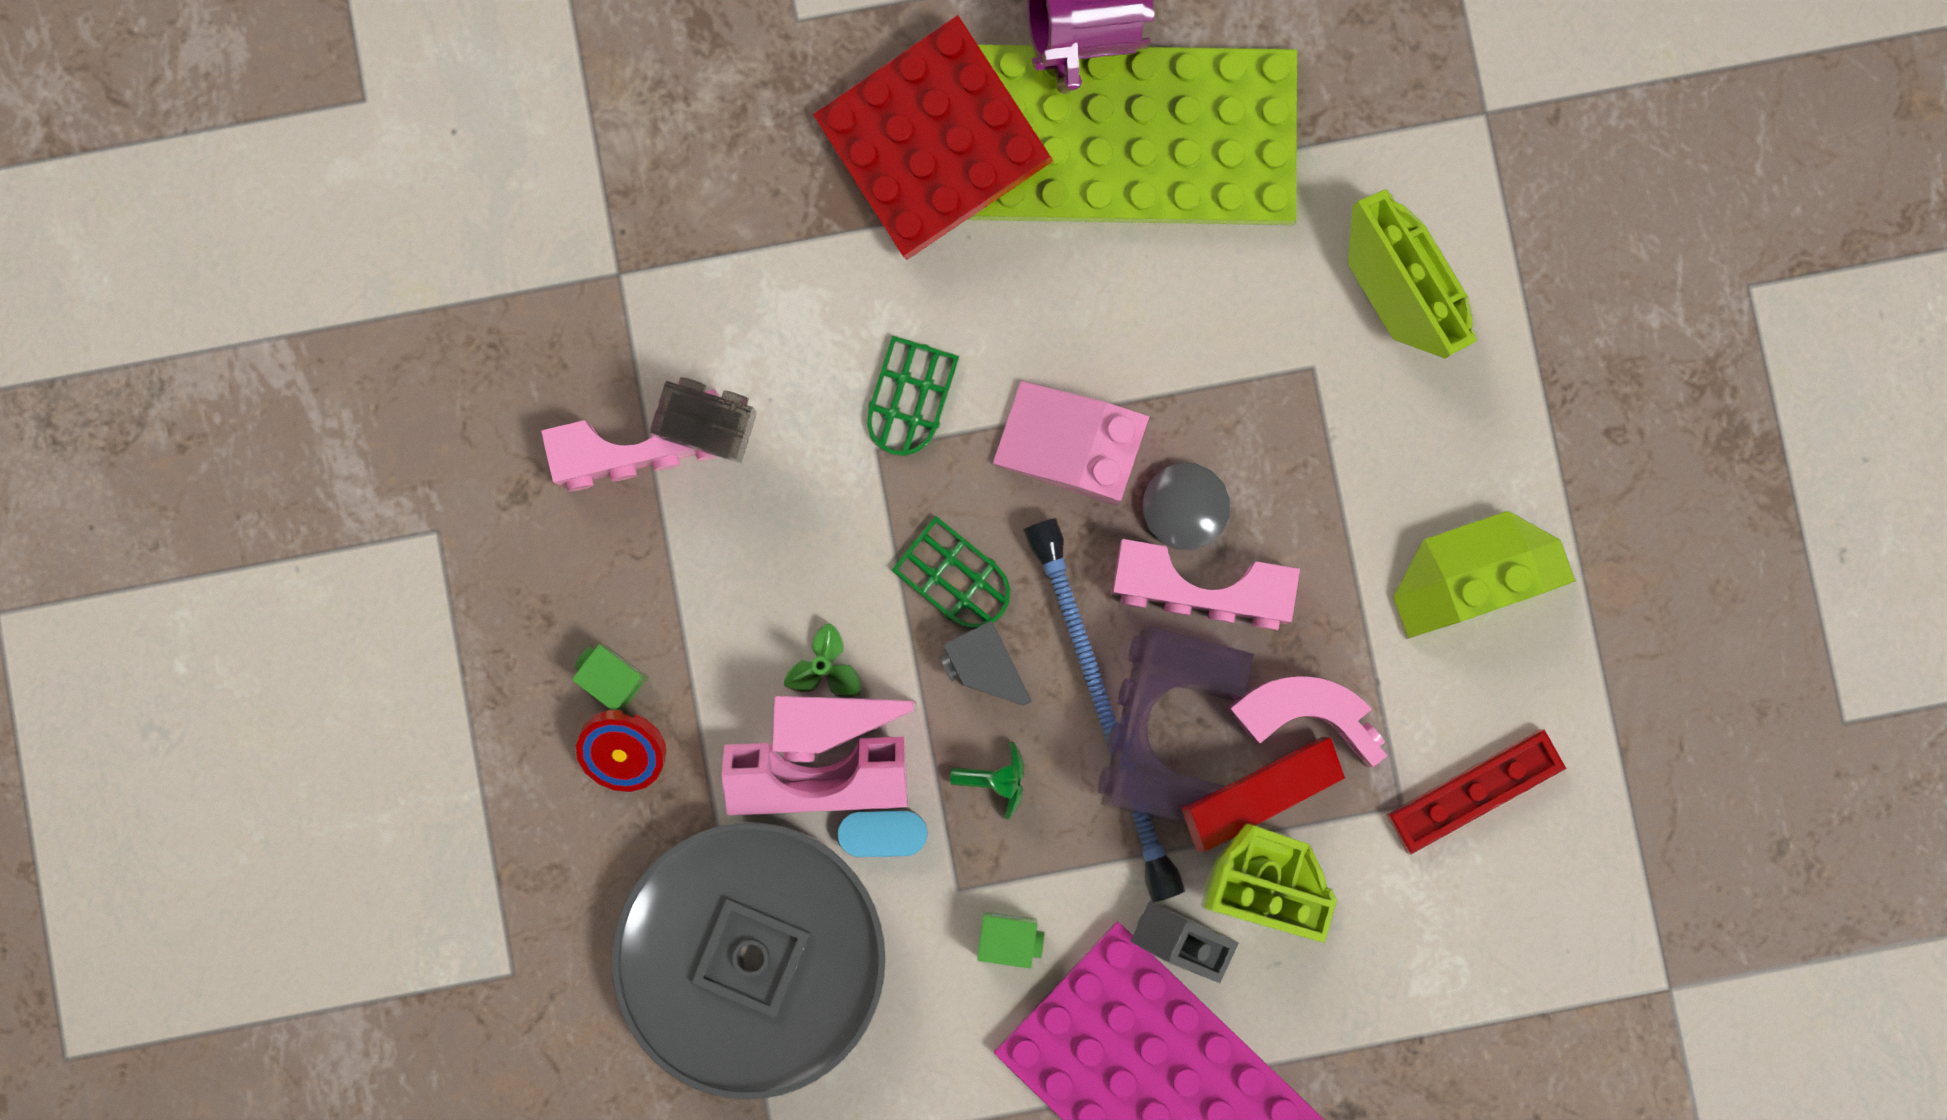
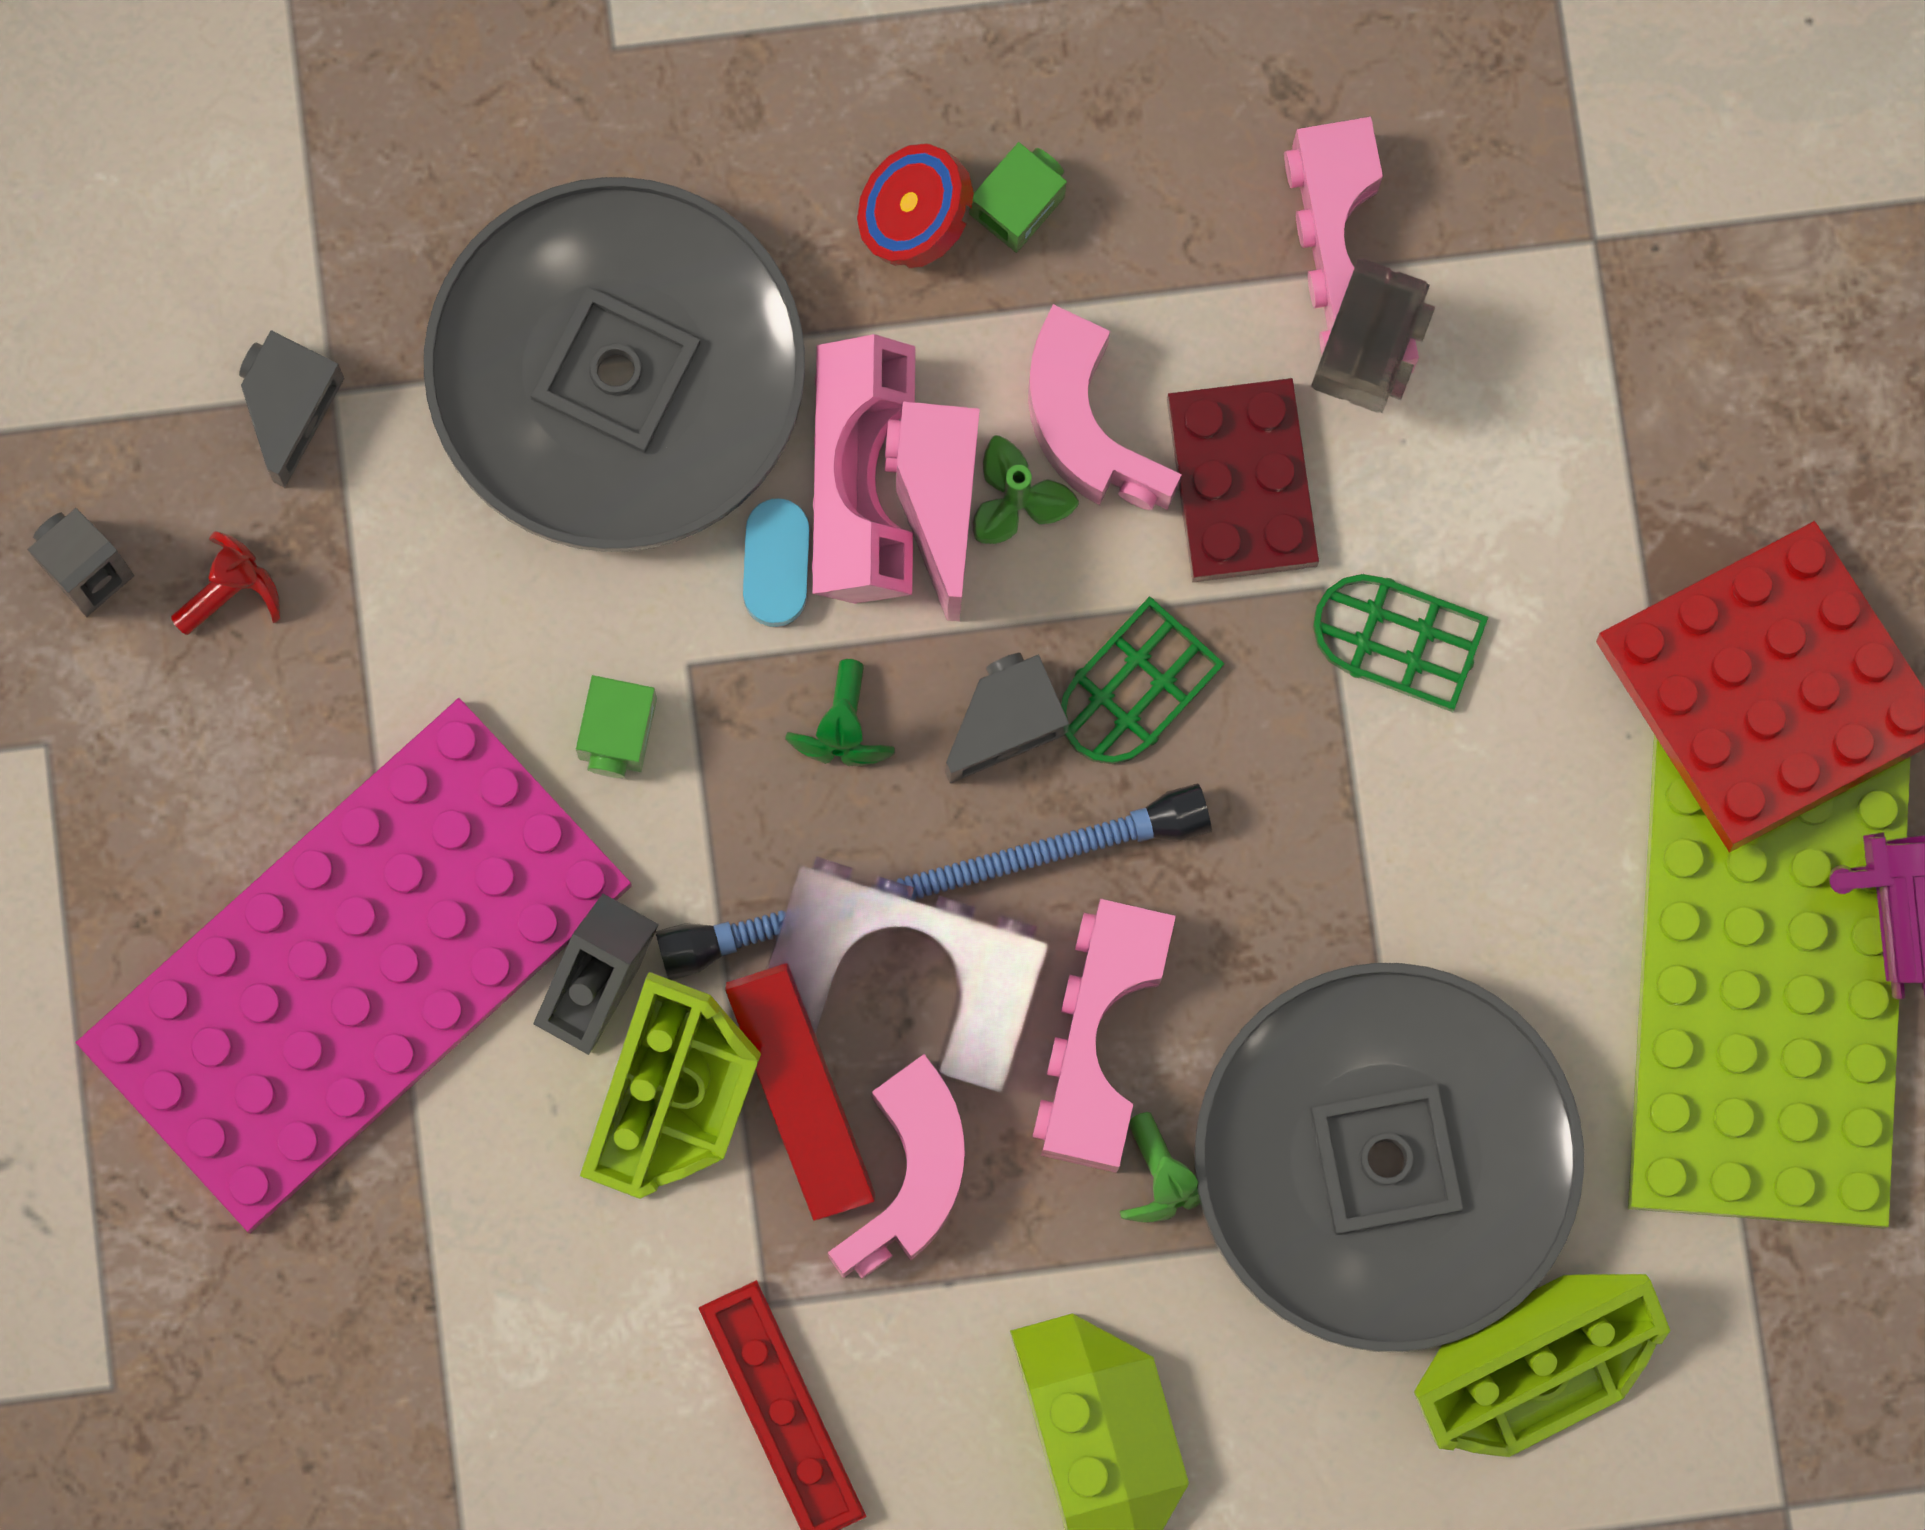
camera: 85 degrees right, 5 degrees down
(771, 636) = (1064, 424): none -> bright pink arch
(804, 509) = (1242, 480): none -> dark red plate
(1071, 441) = (1320, 861): bright pink slope -> none
(1186, 506) = (1206, 1011): dark grey dish -> none
(1306, 532) = (1173, 1181): none -> bright green plant
(1341, 370) = (1482, 1139): none -> dark grey dish

